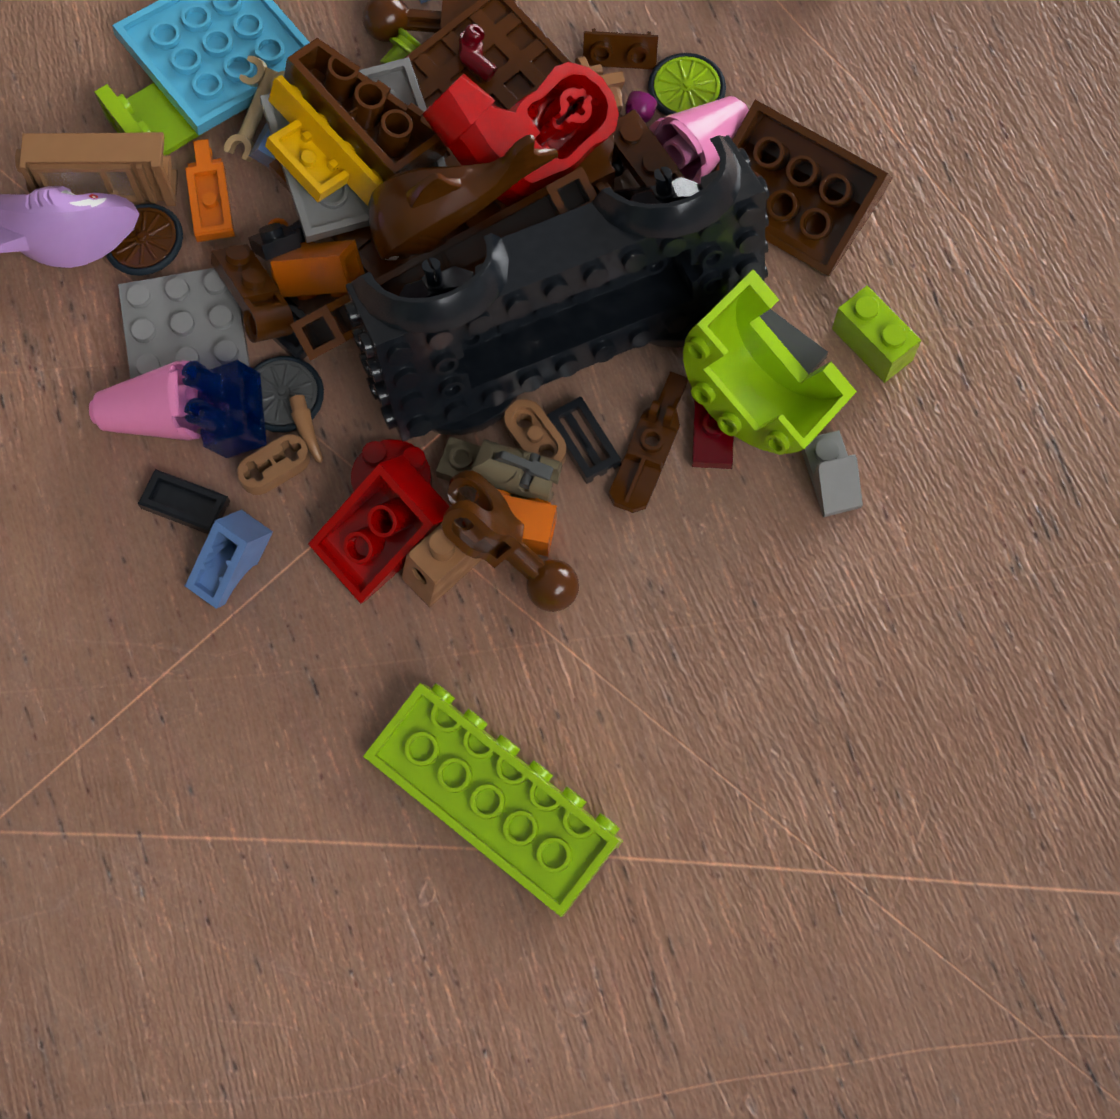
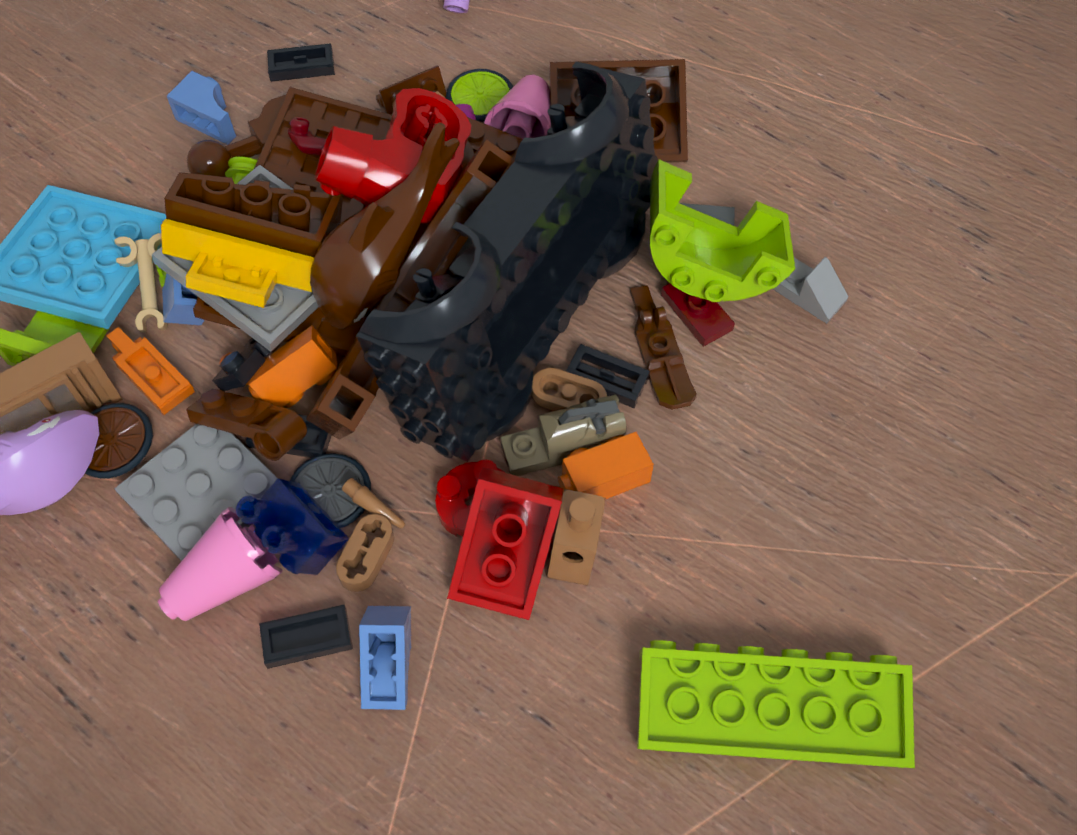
camera: 35 degrees left, 10 degrees down
(497, 535) = (617, 482): reddish brown piece -> none
(875, 334) = (759, 174): lime brick -> none

